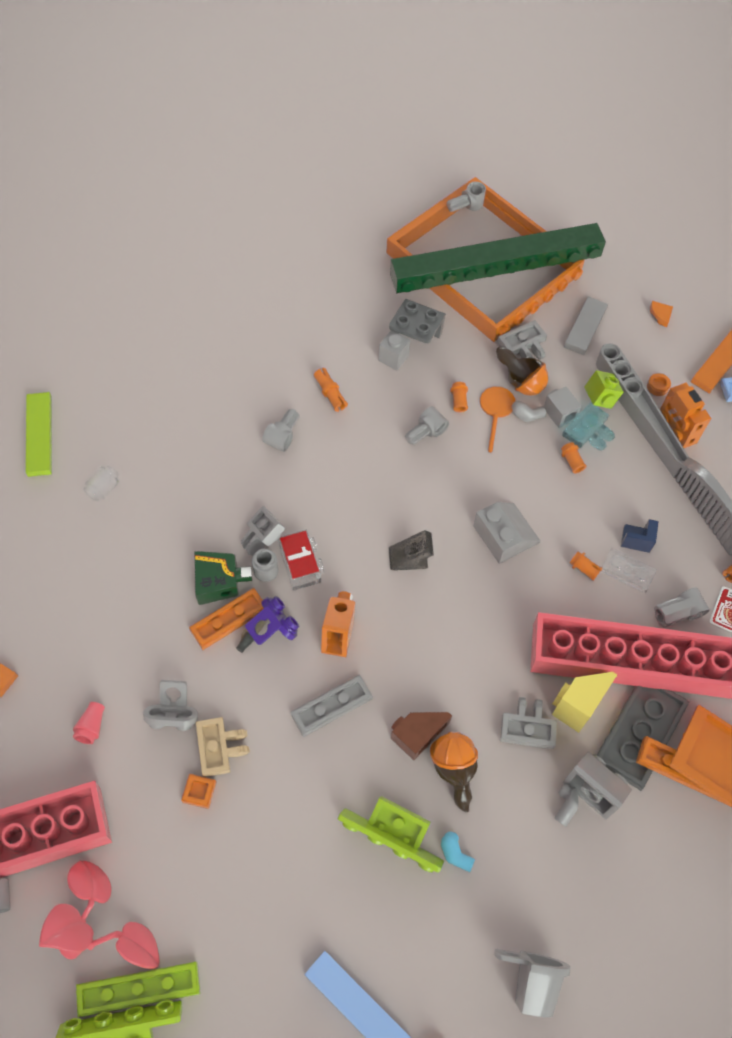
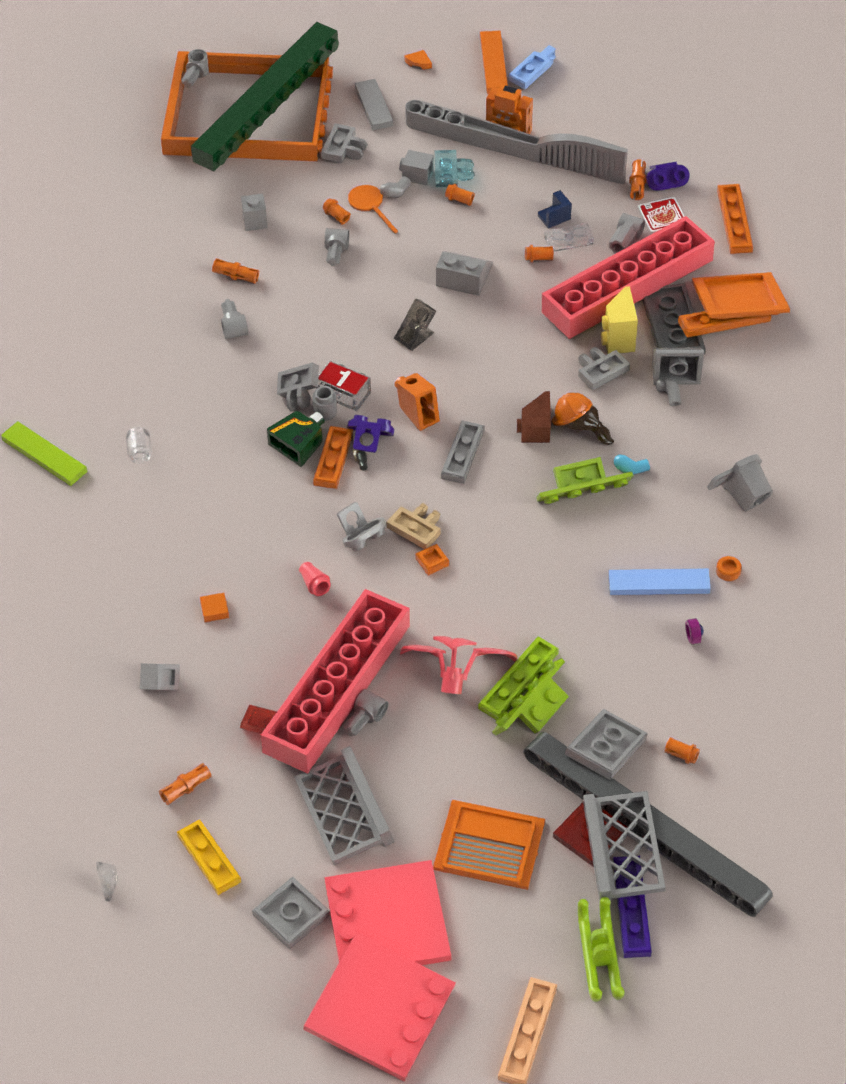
camera: 40 degrees left, 10 degrees down
(418, 321) = (252, 178): dark grey bracket -> none
(525, 374) = (368, 163): dark brown piece -> none
(603, 389) = (435, 134): lime brick -> none
(658, 384) = (468, 107): orange tile -> none

